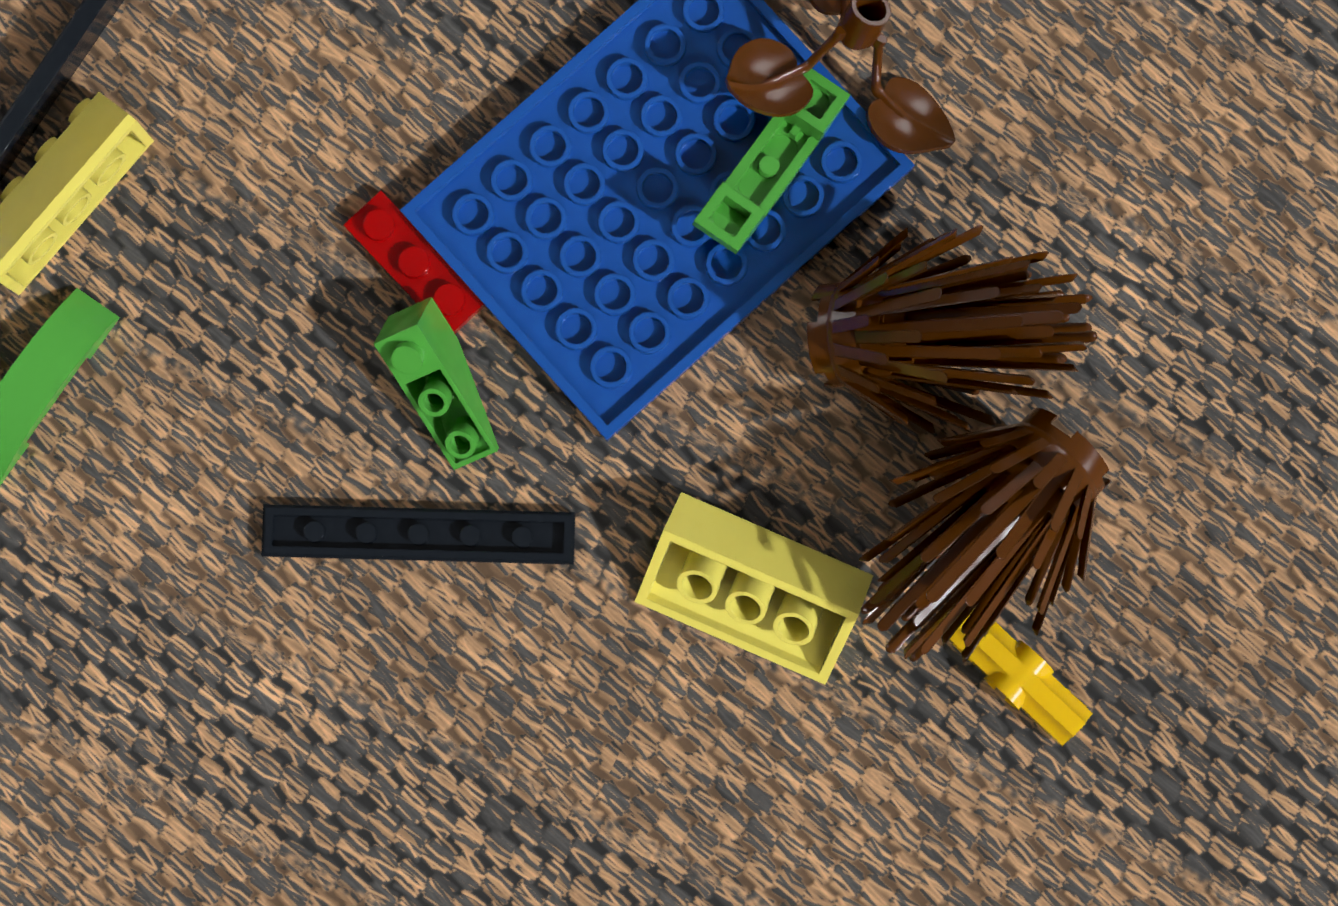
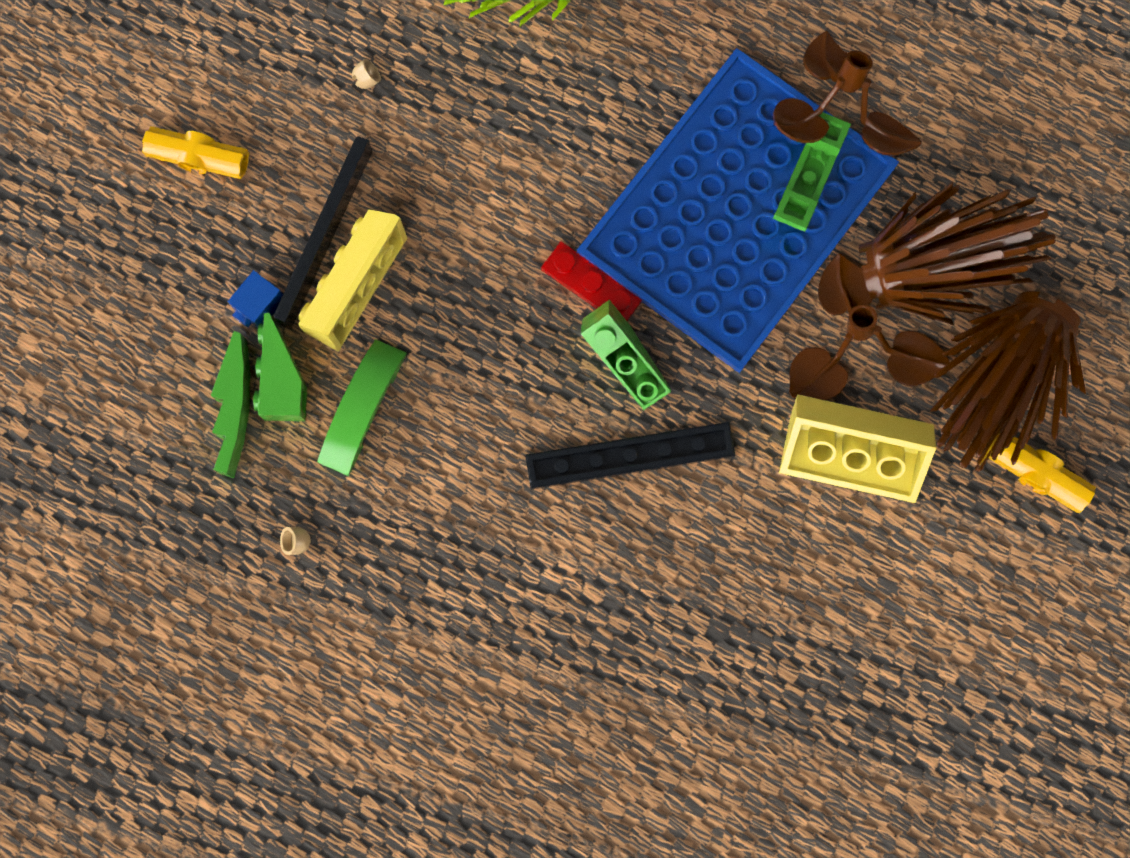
camera: 10 degrees left, 5 degrees down
(724, 468) = (843, 289): none -> reddish brown plant

